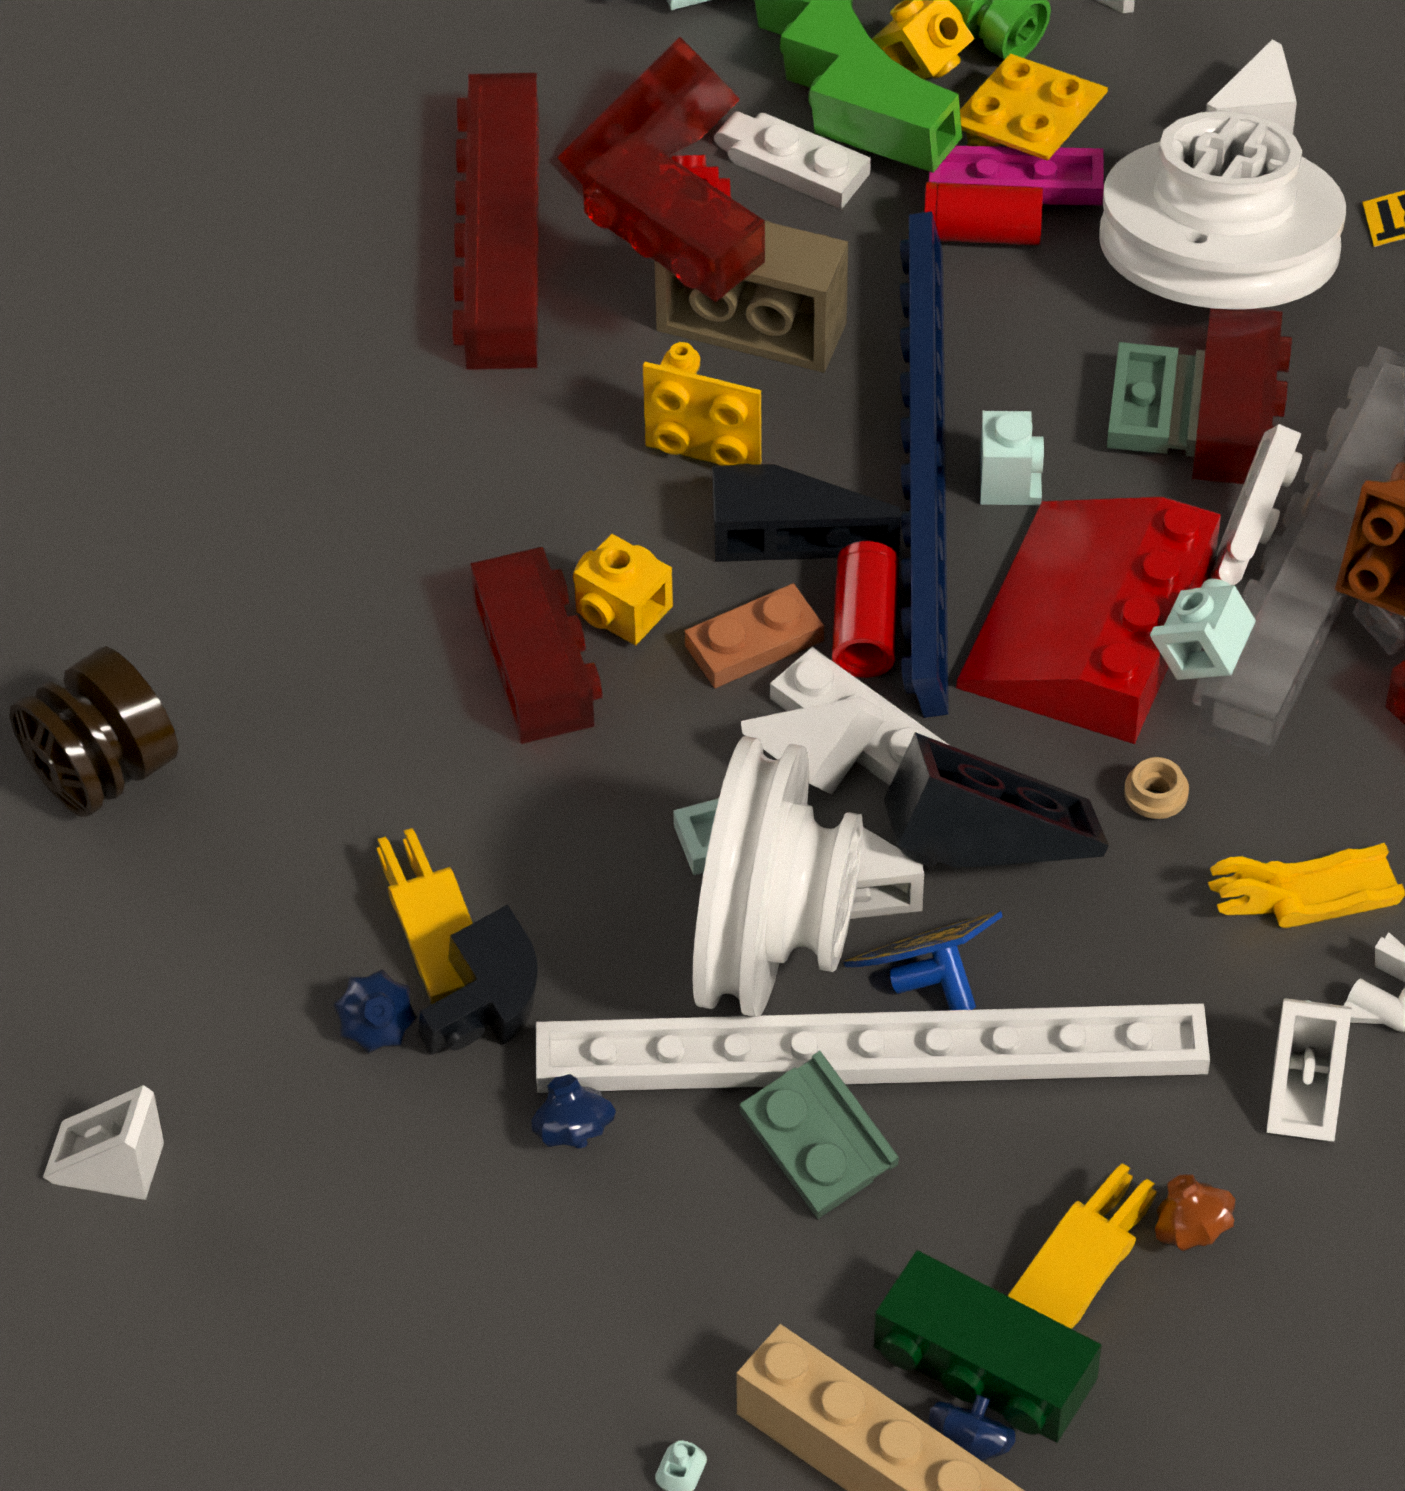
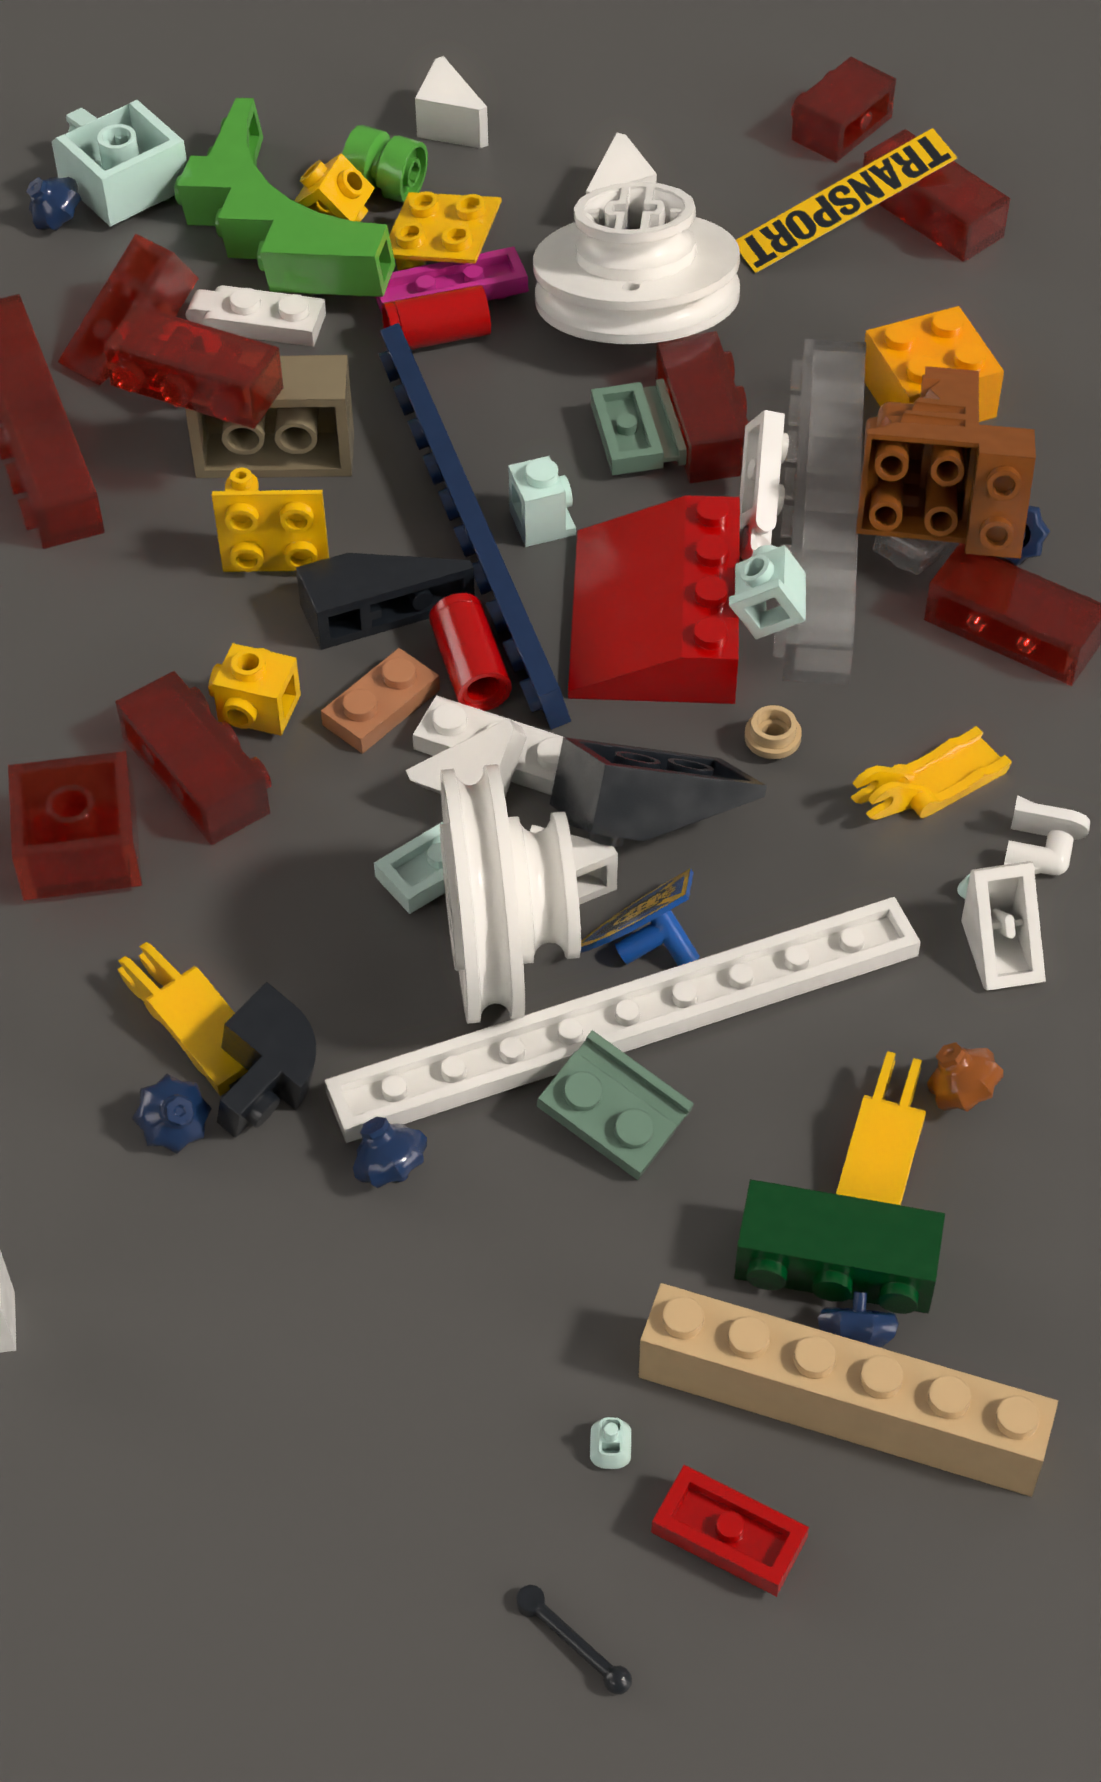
camera: 20 degrees left, 0 degrees up
(383, 685) = (74, 825): none -> clear red brick

